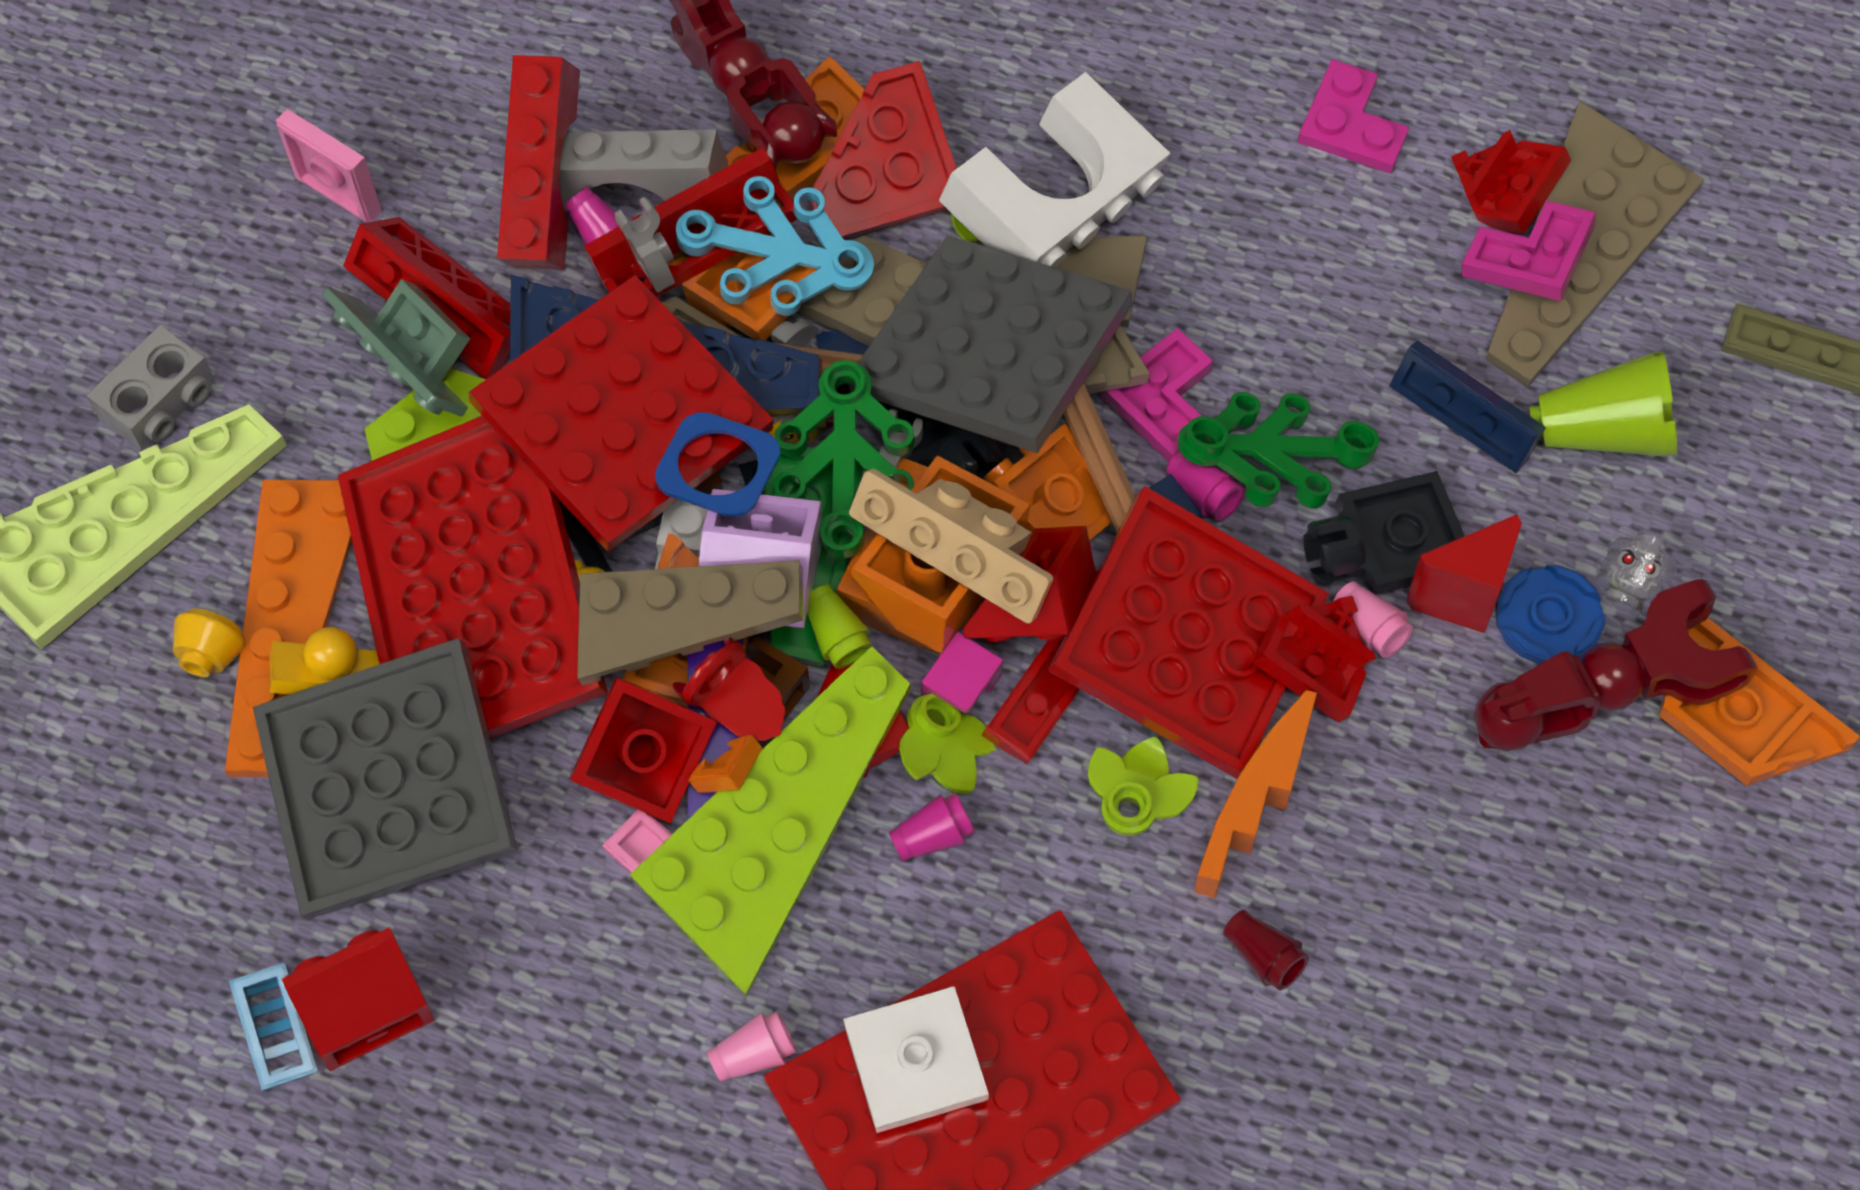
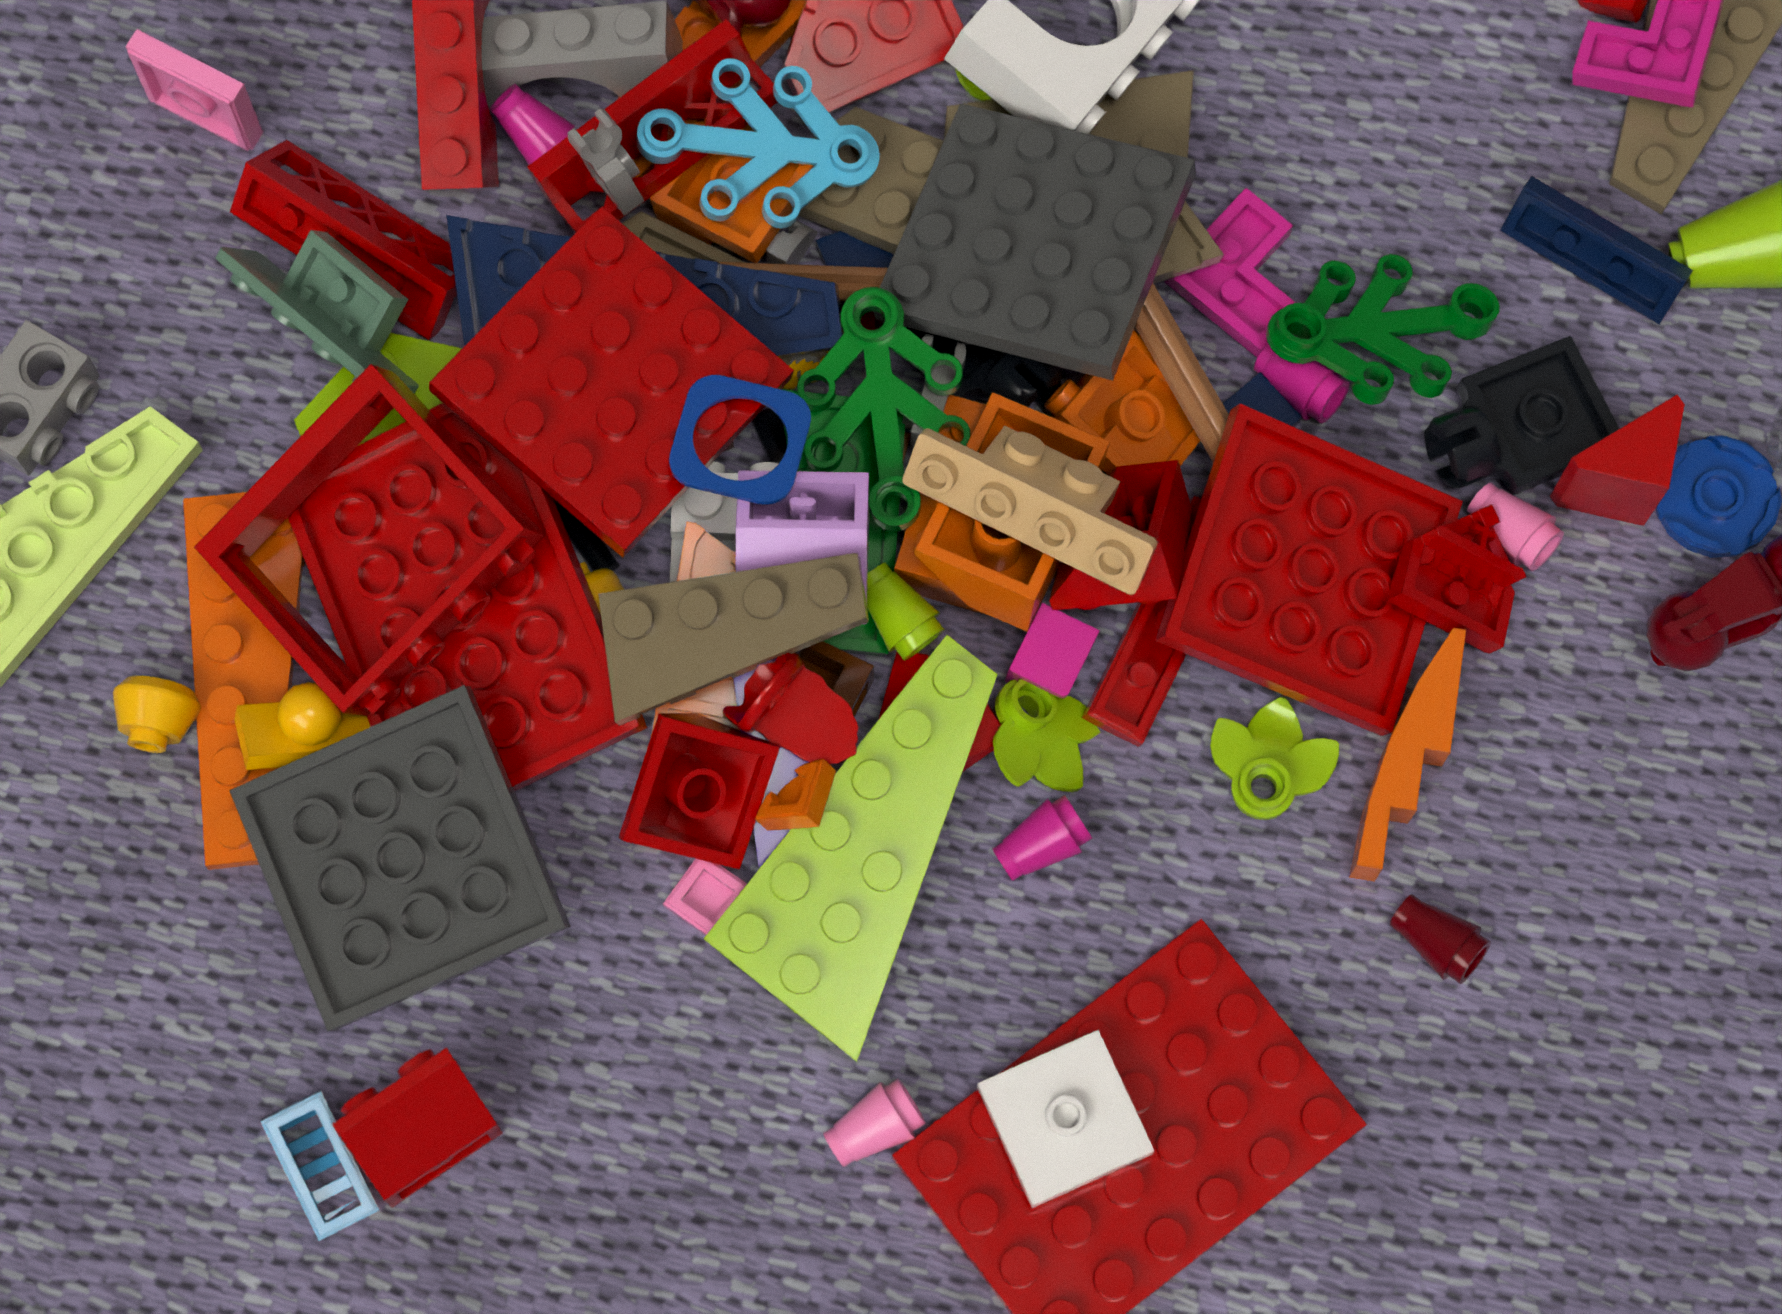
camera: 10 degrees left, 10 degrees up
(350, 464) = (297, 476): none -> red window

